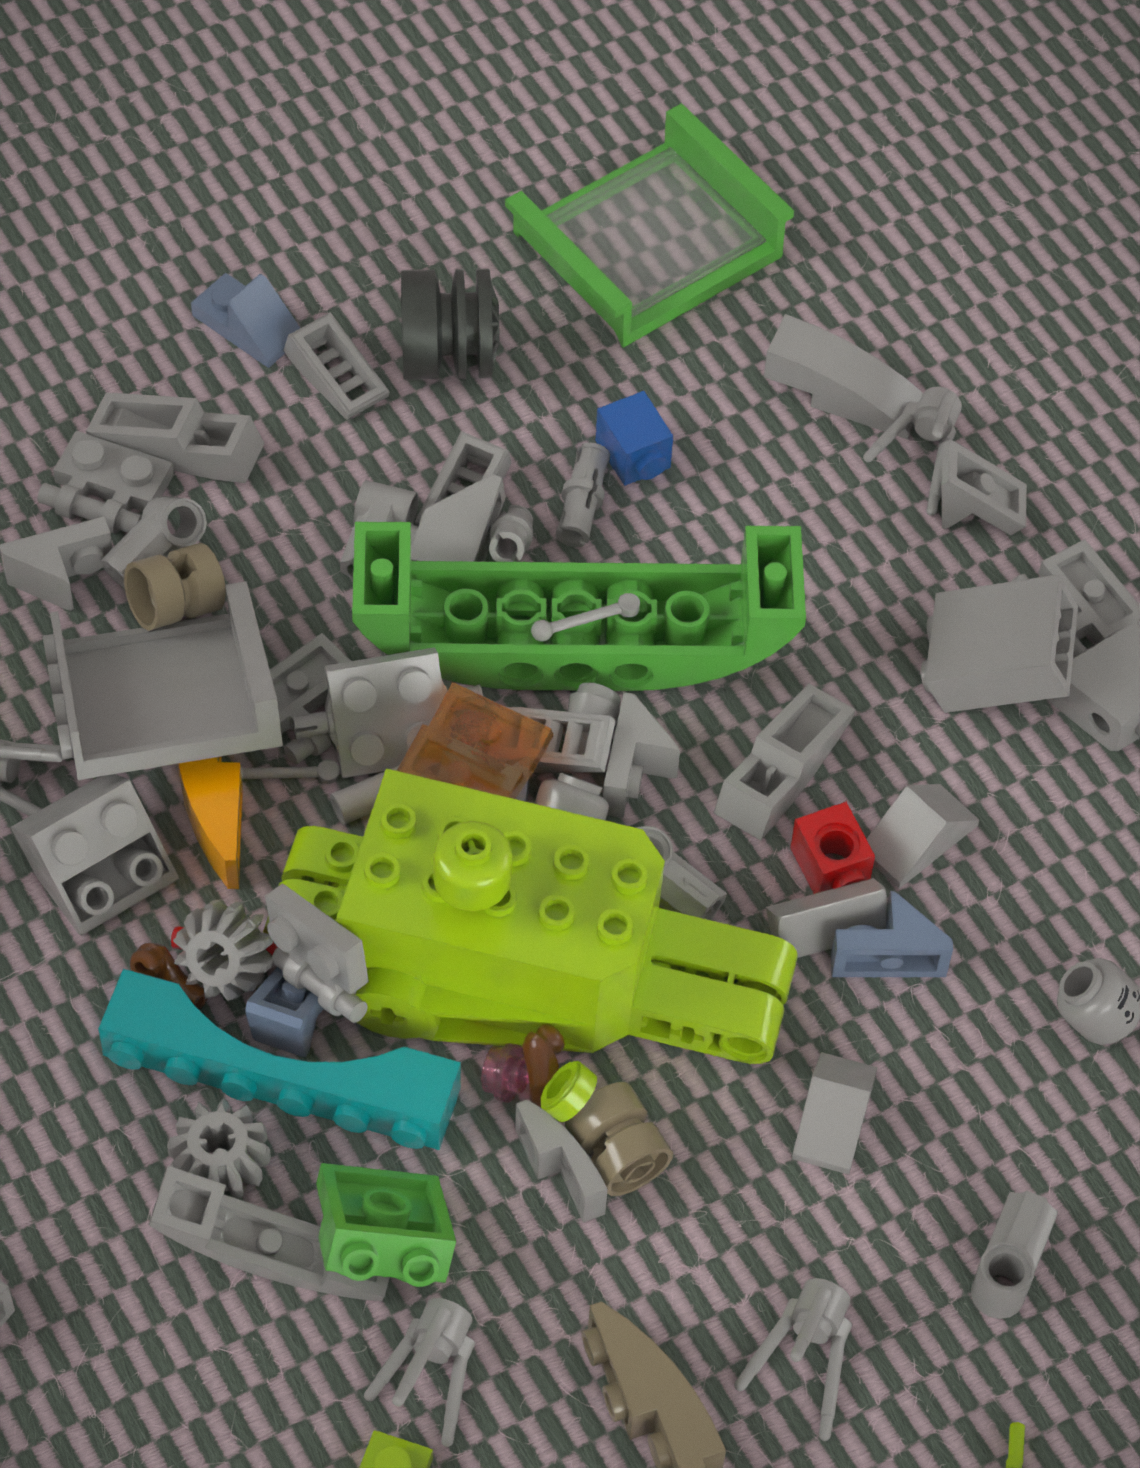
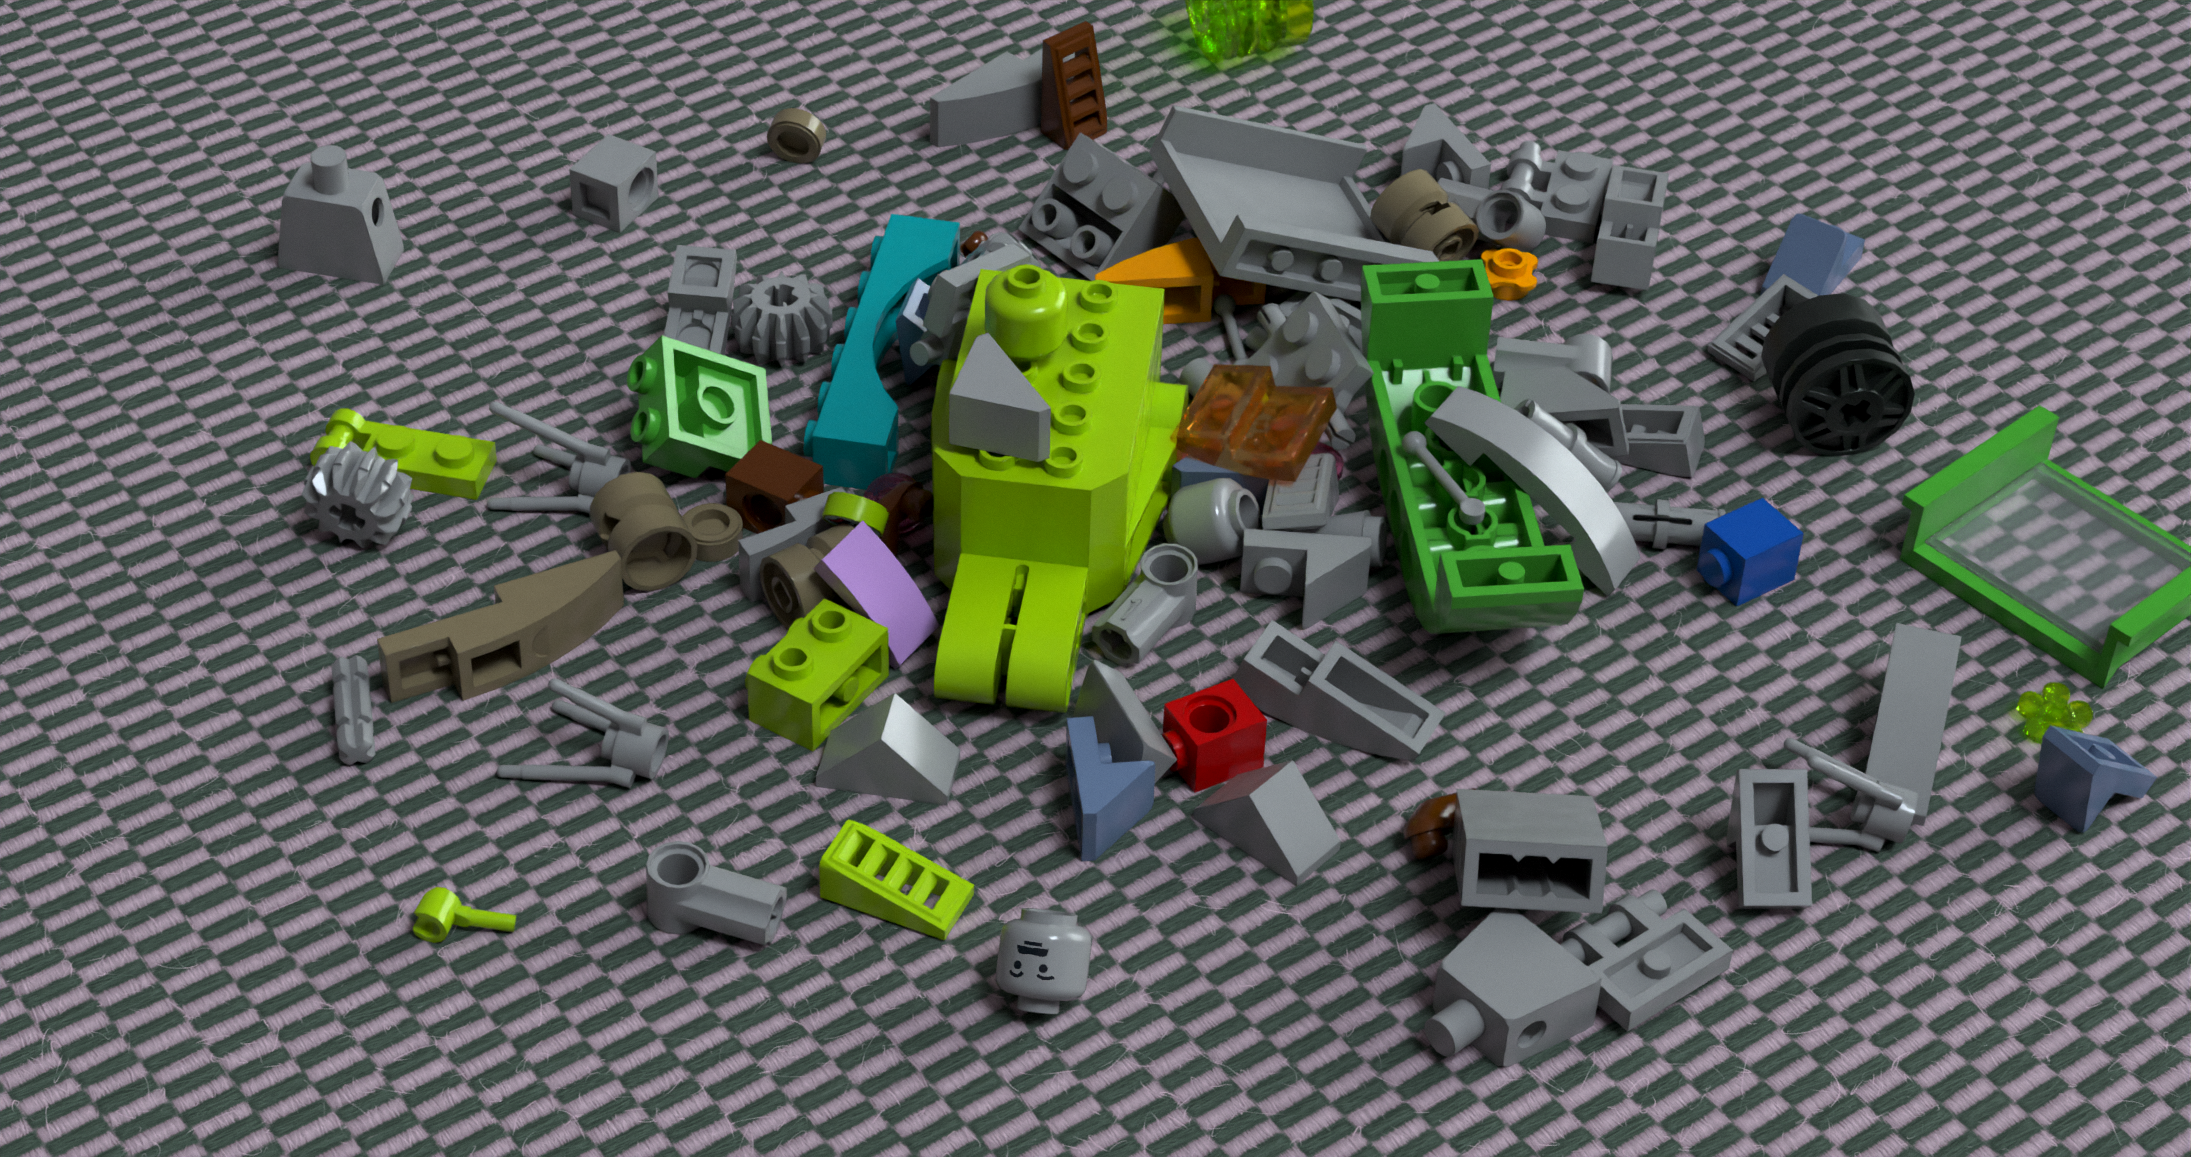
camera: 85 degrees right, 15 degrees down
(231, 552) = (1510, 272): none -> light orange plate
(487, 1171) = (767, 482): none -> reddish brown brick
(514, 1239) = (714, 530): none -> dark tan tile
(540, 1288) = (645, 529): none -> dark tan wheel
(549, 564) = (1548, 474): none -> light grey slope
(584, 909) = (997, 406): none -> light grey slope
(661, 1088) = (879, 589): none -> lavender slope
(738, 1152) = (817, 674): none -> lime brick
(818, 291) = (2053, 710): none -> clear neon green plant
(911, 279) = (2082, 773): none -> sand blue slope
(924, 714) = (1427, 826): none -> reddish brown arm
(967, 1149) = (862, 852): none -> lime slope

